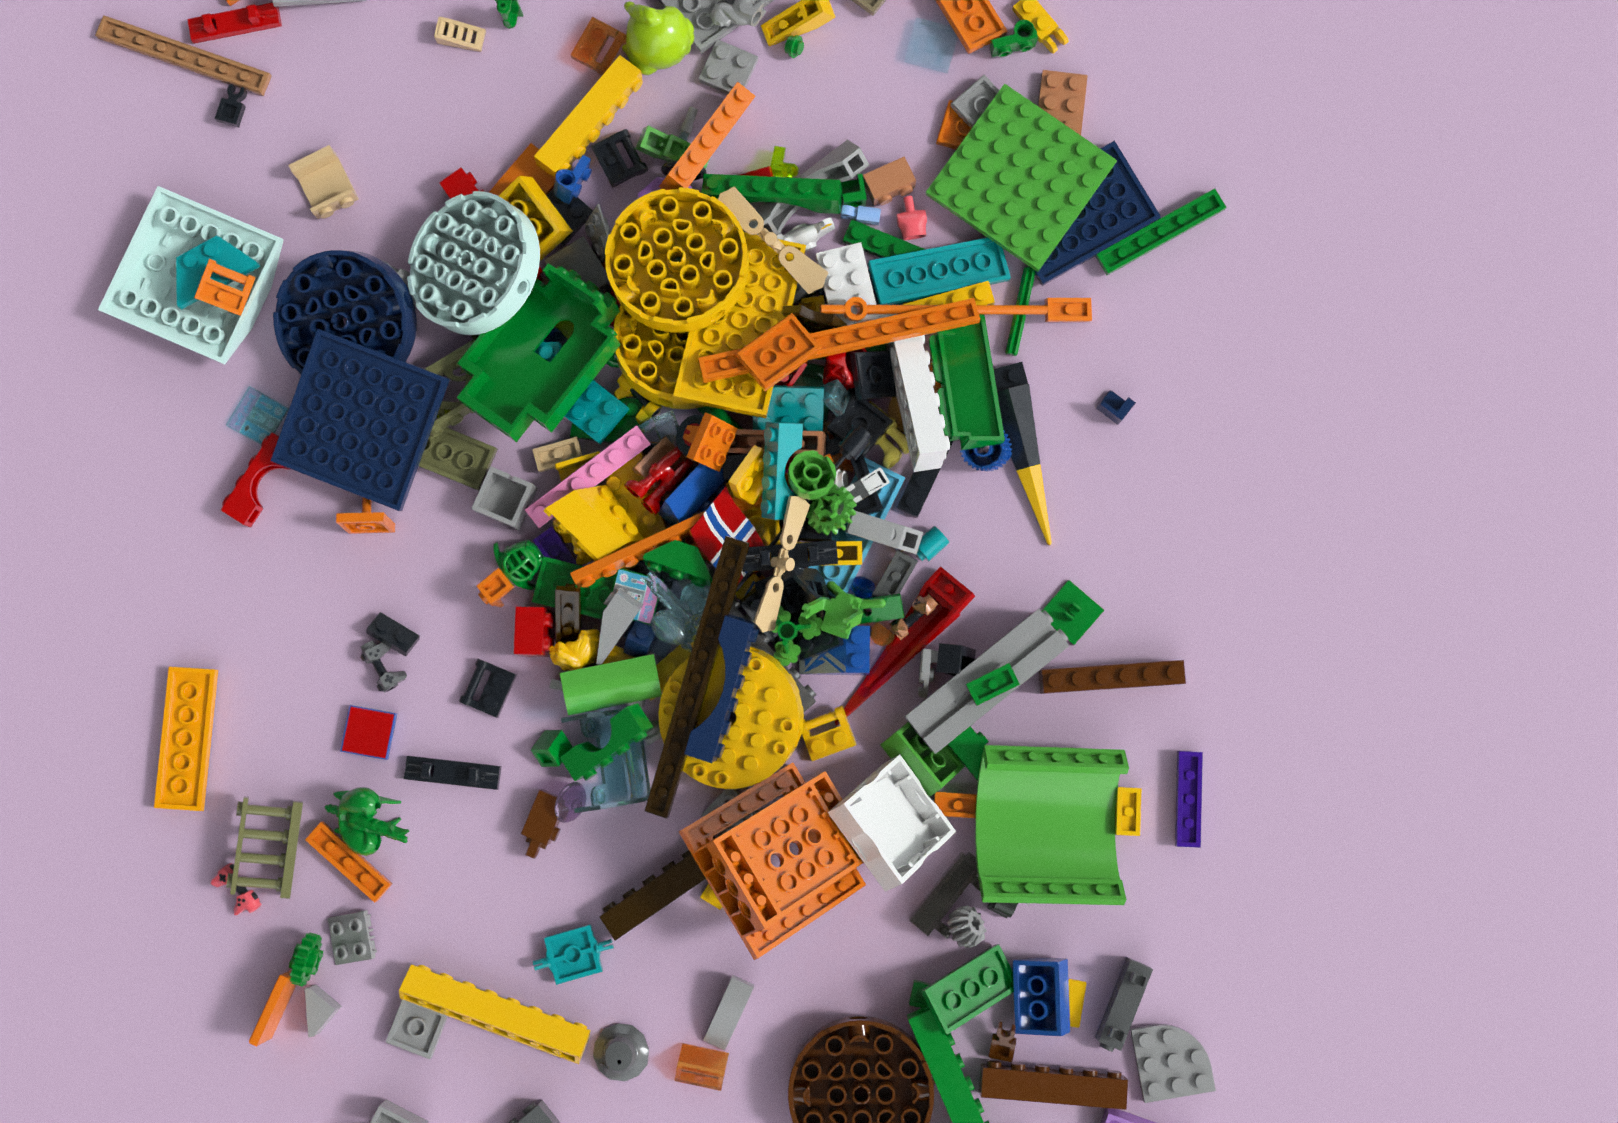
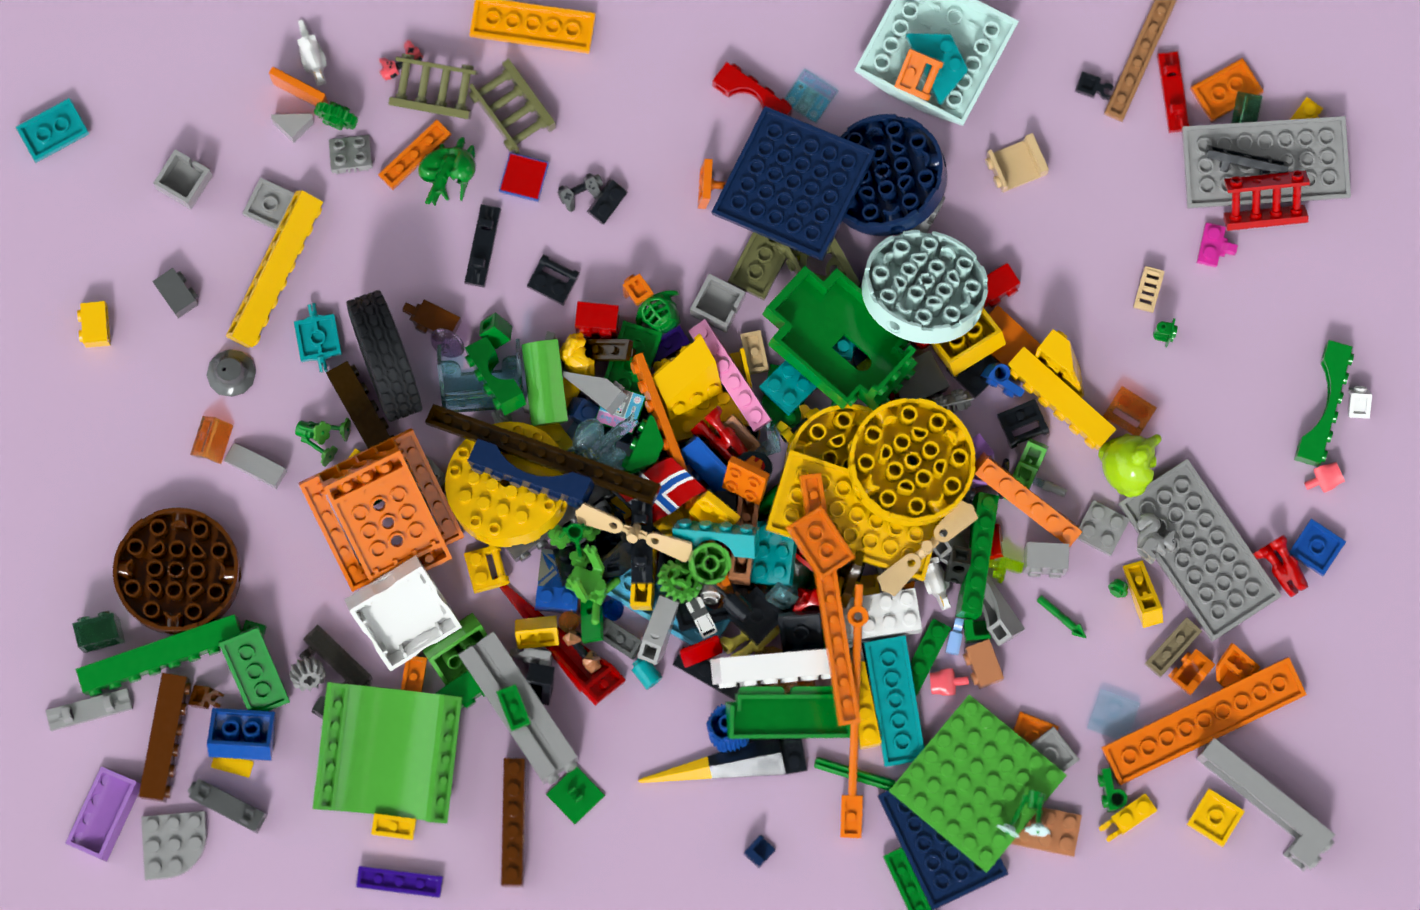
camera: 90 degrees right, 5 degrees down
(233, 995) = (311, 55): none -> white animal
(263, 745) = (532, 105): none -> olive fence
(543, 114) = (1060, 358): none -> yellow wedge
(593, 872) = (384, 355): none -> black tyre
(688, 938) = (320, 433): none -> plant
(770, 119) = (1046, 559): none -> light grey brick
(786, 209) = (958, 564): none -> pearl dark grey leg
(842, 88) = (1077, 630): none -> green piece
(896, 669) = (536, 632): none -> yellow hinge
(903, 485) = (701, 651): none -> red slope
(1040, 107) = (1035, 802): none -> green plant

